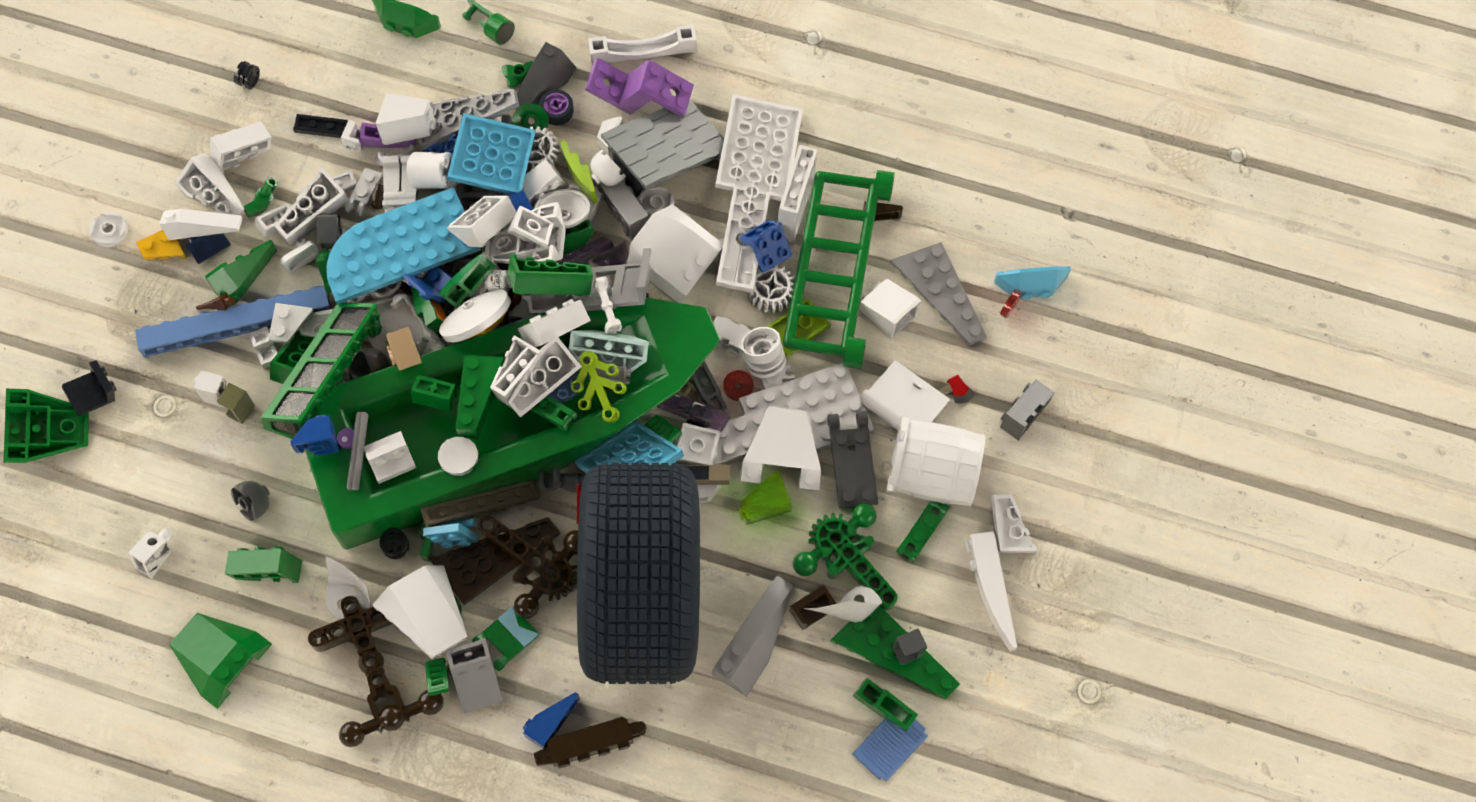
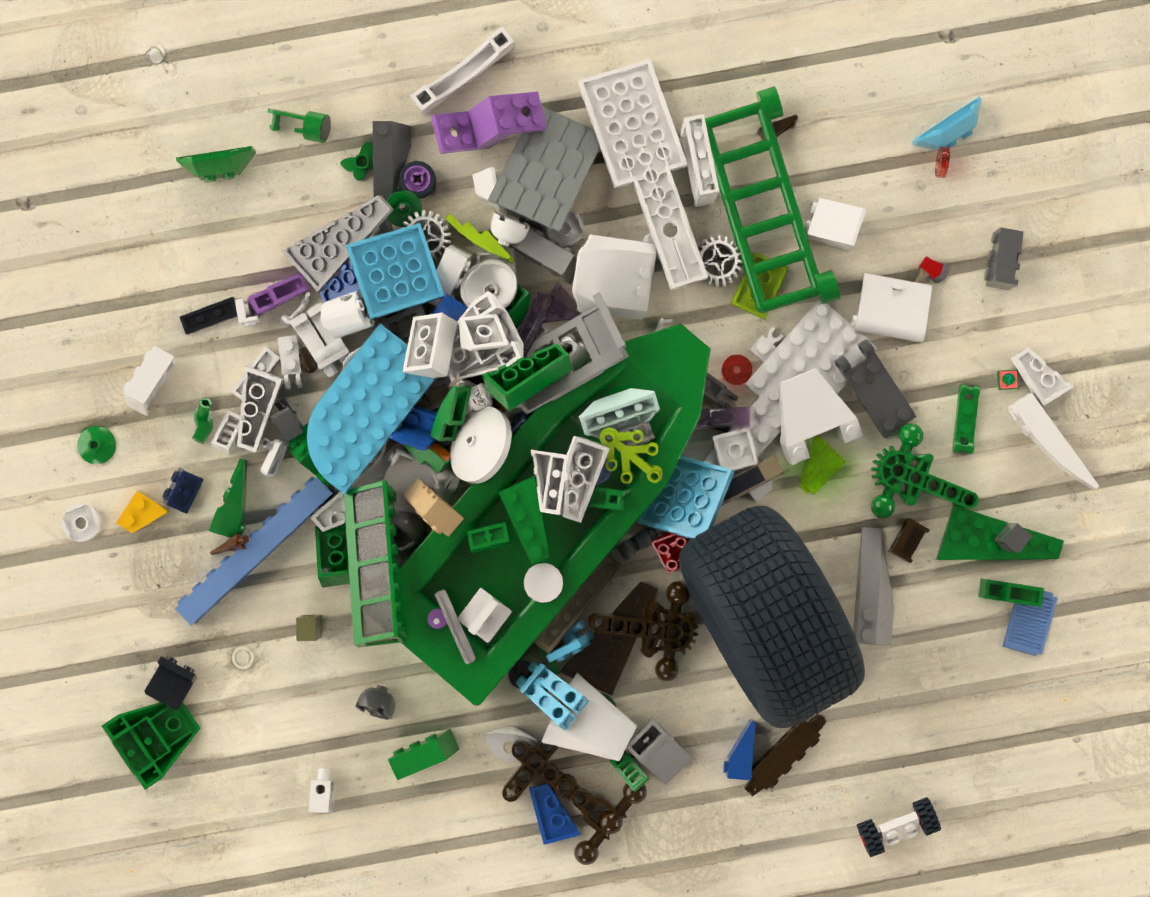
camera: 25 degrees left, 20 degrees up
(165, 183) = (105, 448): none -> green dish
(195, 223) = (164, 476): white wedge -> none
(206, 182) = (144, 432): white wedge -> none
(209, 387) = (279, 626): white brick -> none
(216, 654) = (430, 845): green wedge -> none
(247, 75) = (108, 303): black wheel -> none
(264, 348) = (297, 558): white slope -> none
(287, 321) = (306, 529): white wing -> none
(316, 436) = (415, 635): blue slope -> none
(341, 685) = (551, 815): none -> blue wing
(404, 119) = (291, 277): white slope -> none
(408, 549) = (537, 689): none -> medium azure hips
(509, 635) = (664, 700): green flag -> none
(555, 323) = (559, 419): white wedge -> none
(613, 325) = (612, 391): white piece -> none
(663, 428) = (689, 449): green slope -> none
(730, 334) = (706, 326): white brick -> none
(763, 352) = (738, 327): white wheel -> none
(768, 244) = (696, 223): blue bracket -> none
(850, 609) = (939, 529): white piece -> none
(936, 462) = (956, 360): white piece -> none
(939, 285) = (865, 174): light grey wing -> none
(979, 515) = (1007, 379): none -> tile

